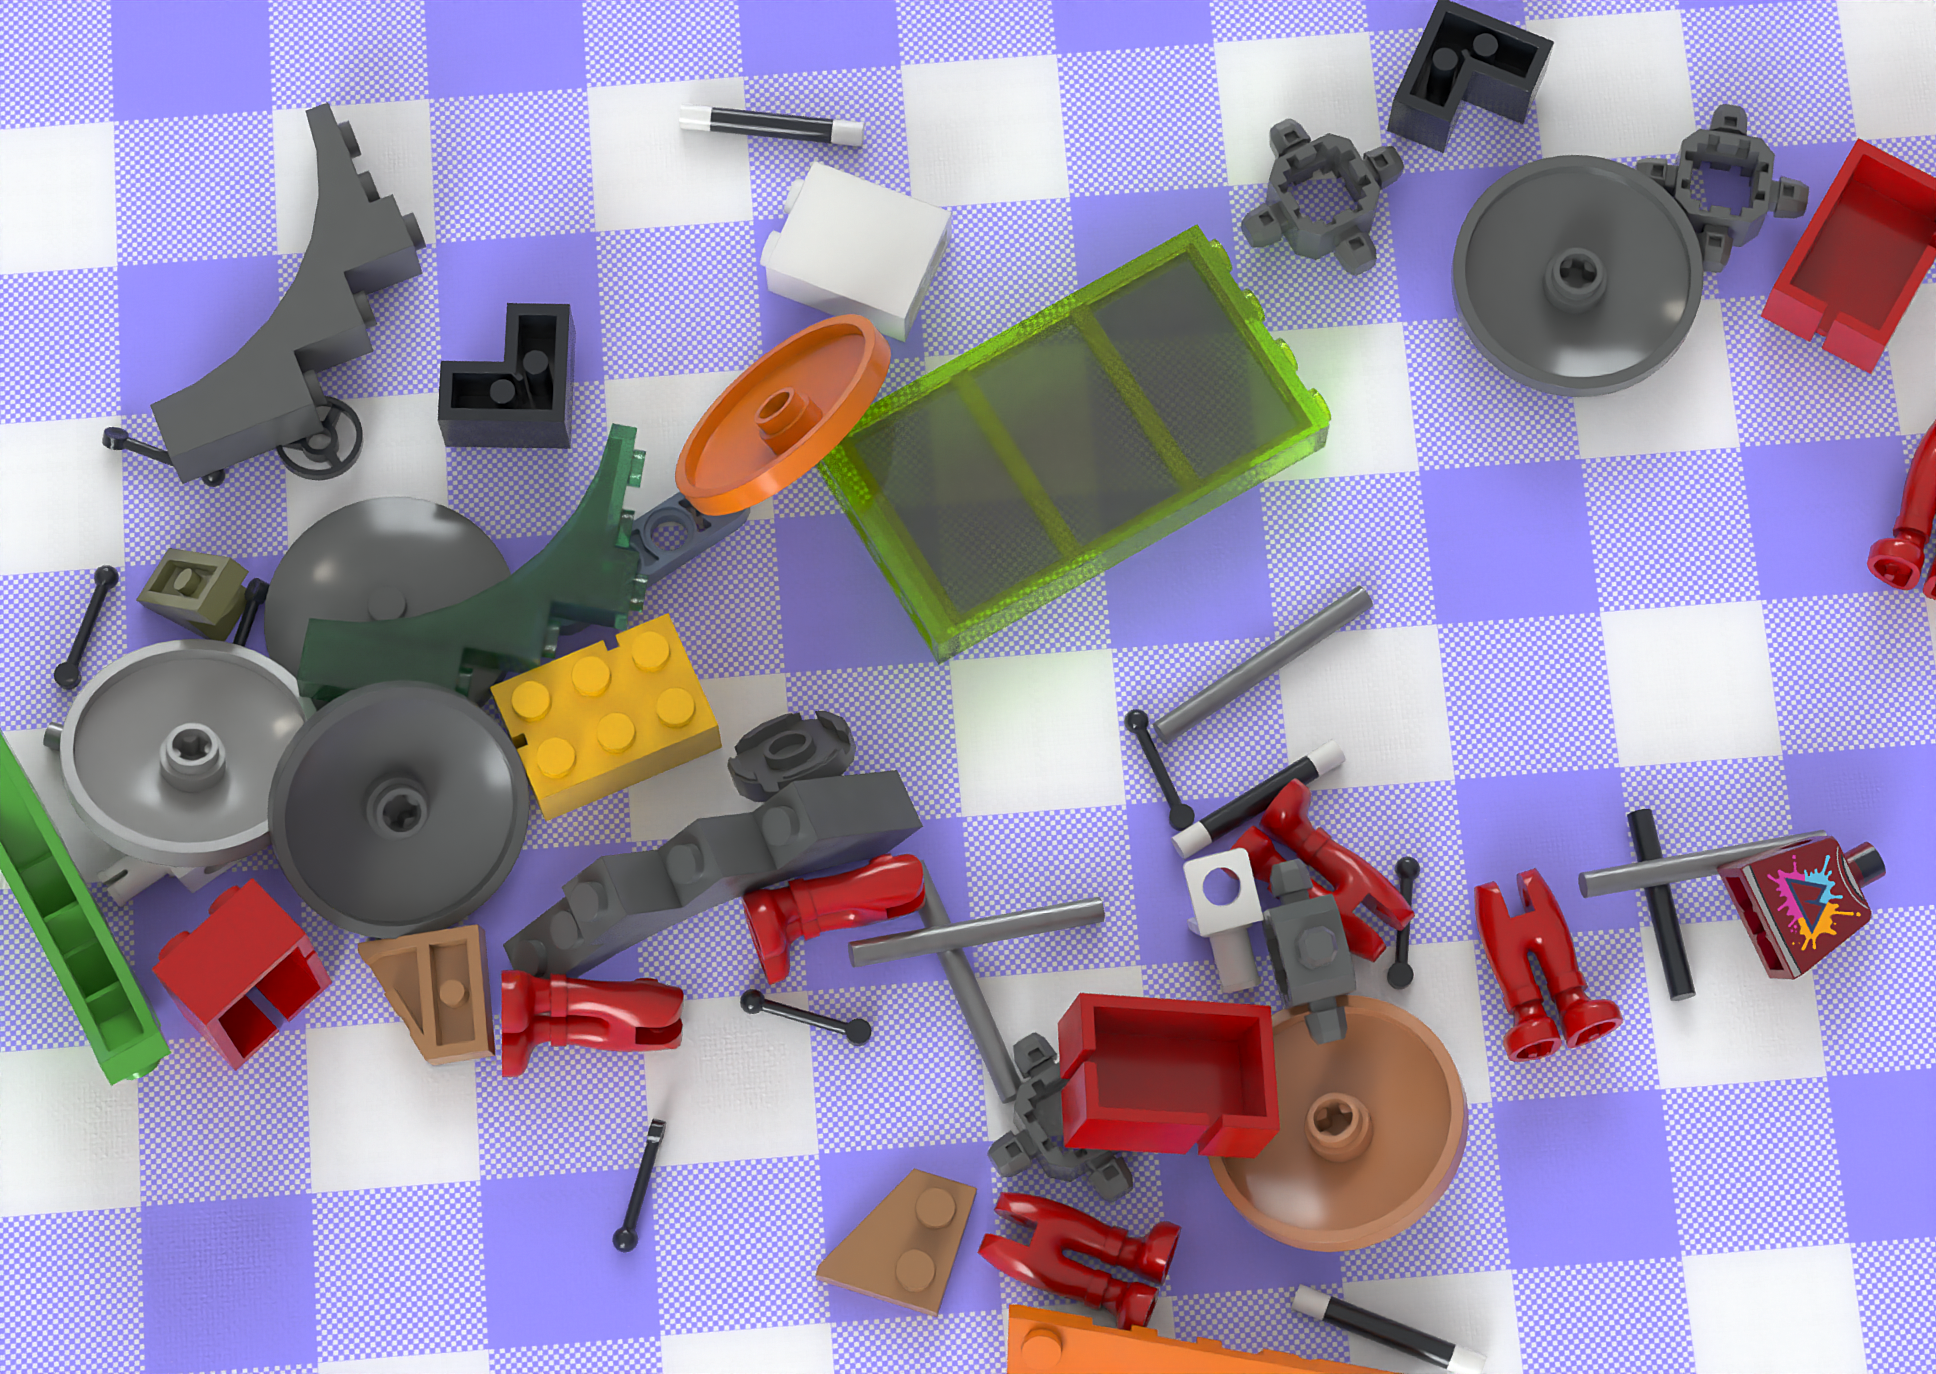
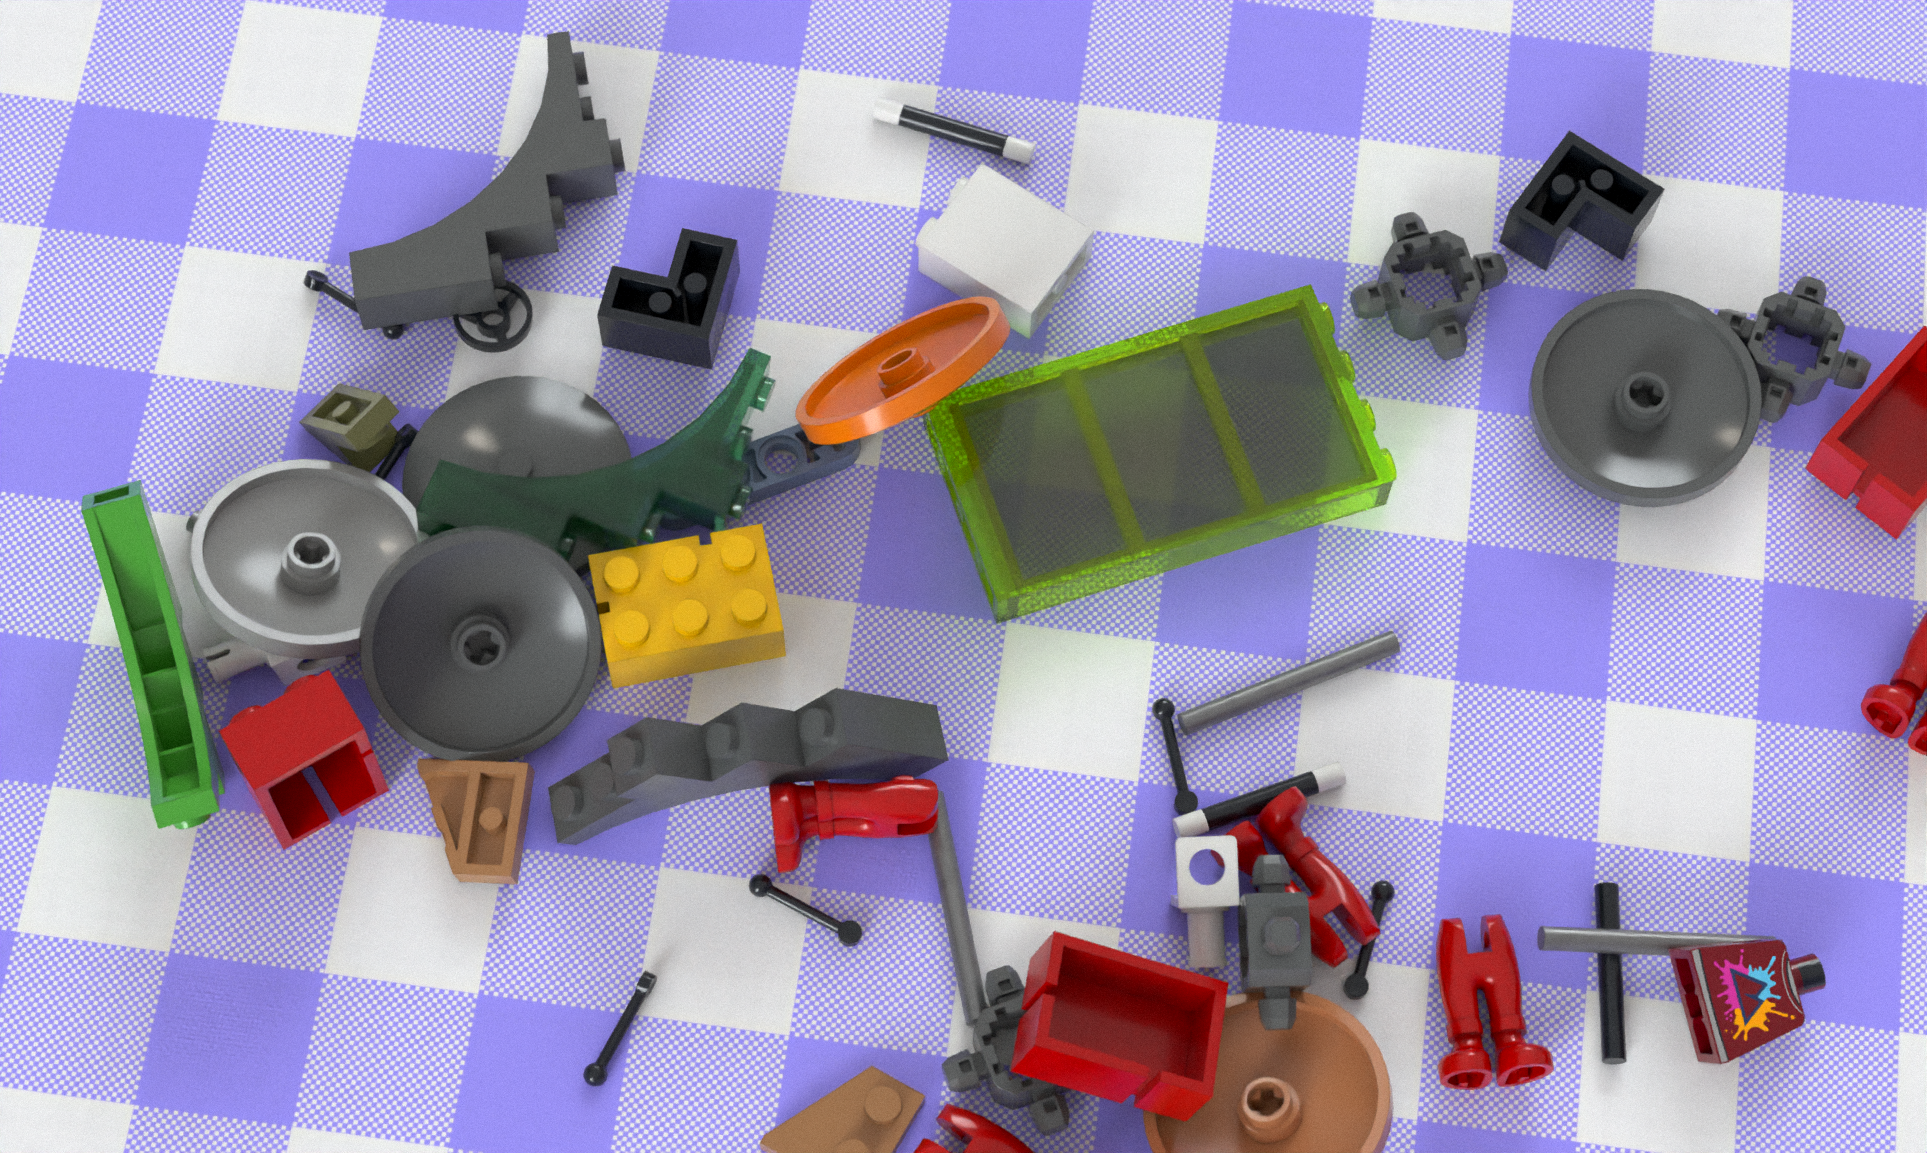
camera: 10 degrees right, 5 degrees down
(67, 673) = (224, 471): black hinge -> none
(587, 1014) = (606, 862): red piece -> none
(790, 751) = (844, 665): dark grey tile -> none
(976, 932) = (976, 864): flat silver bar -> none

